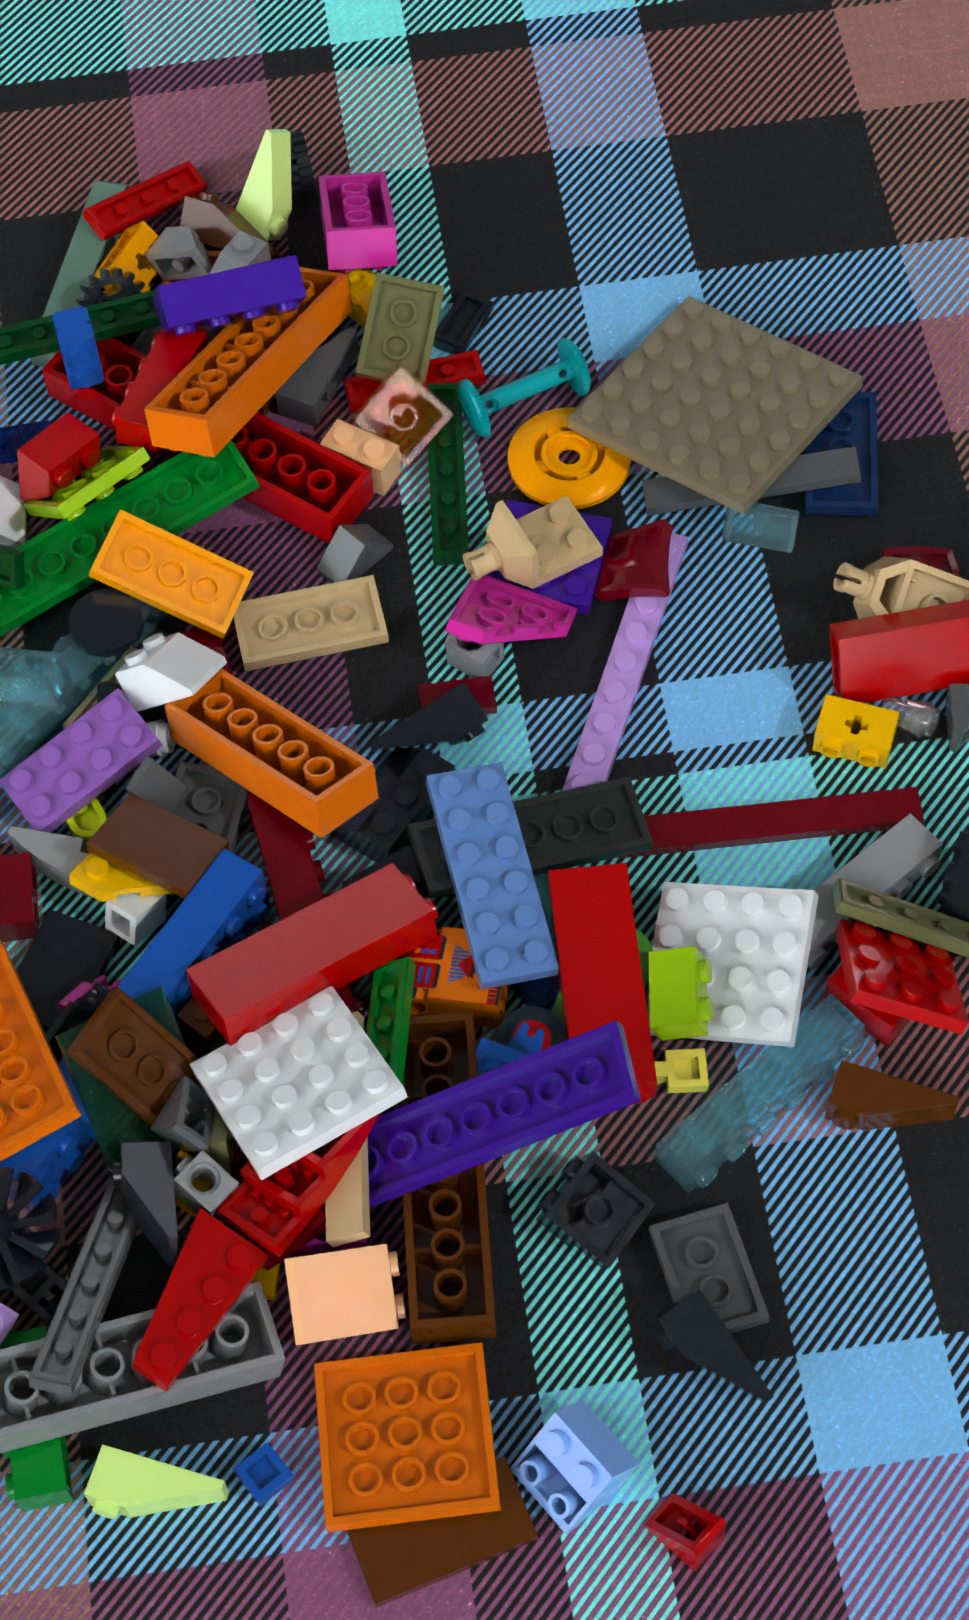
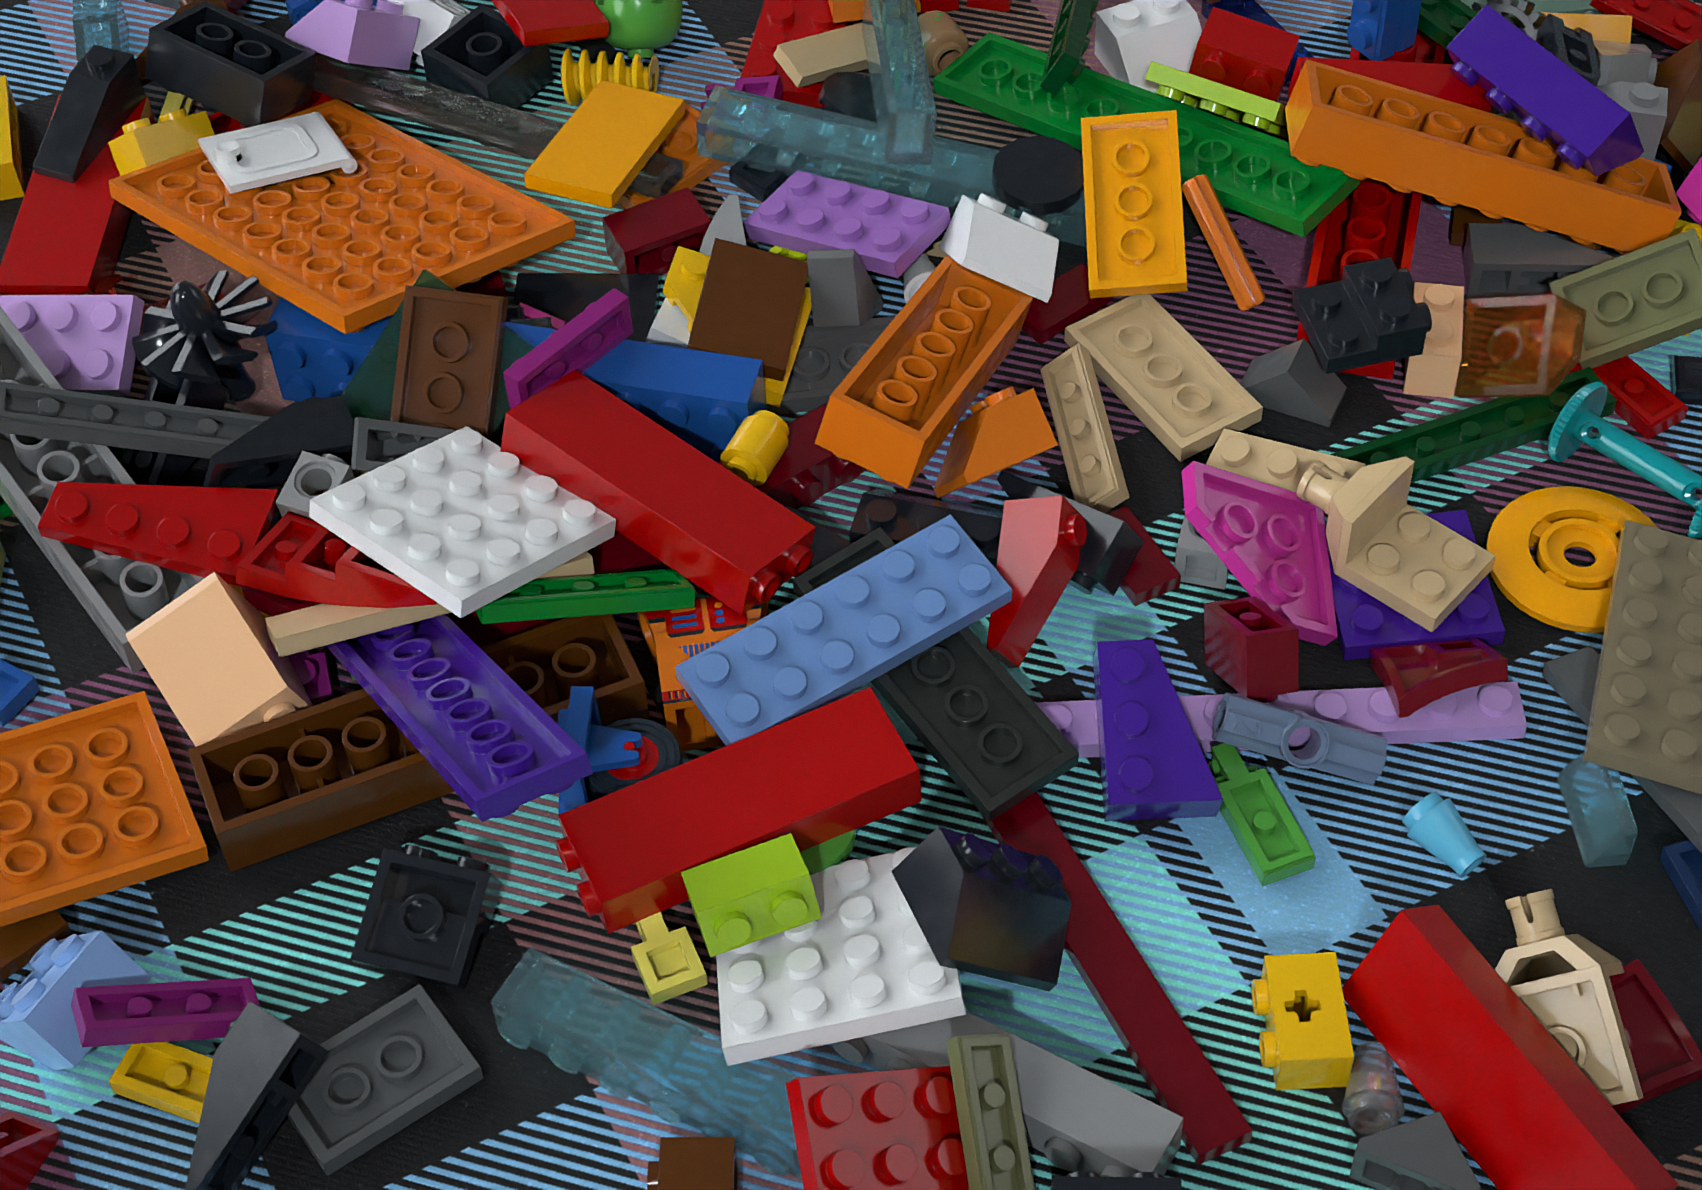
camera: 70 degrees right, 10 degrees down
(168, 968) = (571, 347): none -> magenta plate
(170, 266) = (1571, 47): none -> black plate
(222, 538) = (1223, 242): none -> orange axle
(293, 882) = (756, 447): none -> yellow brick
(341, 686) = (1084, 430): none -> tan tile
(351, 481) = (1363, 316): none -> black plate
(355, 722) = (997, 436): none -> orange slope
(430, 586) = (1272, 460): none -> tan plate
(460, 741) = (1037, 560): none -> red slope
(584, 652) = (1251, 648): none -> dark red brick
(621, 1391) = (159, 1011): none -> magenta plate
(630, 736) = (1145, 739): none -> dark purple wedge
(659, 655) = (1330, 747): none -> sand blue piece
(665, 1402) = (164, 1078): none -> yellow plate
(697, 702) = (1259, 818): none -> bright green hinge
(735, 863) = (987, 907): none -> black slope
(748, 611) = (1442, 832): none -> medium azure cone

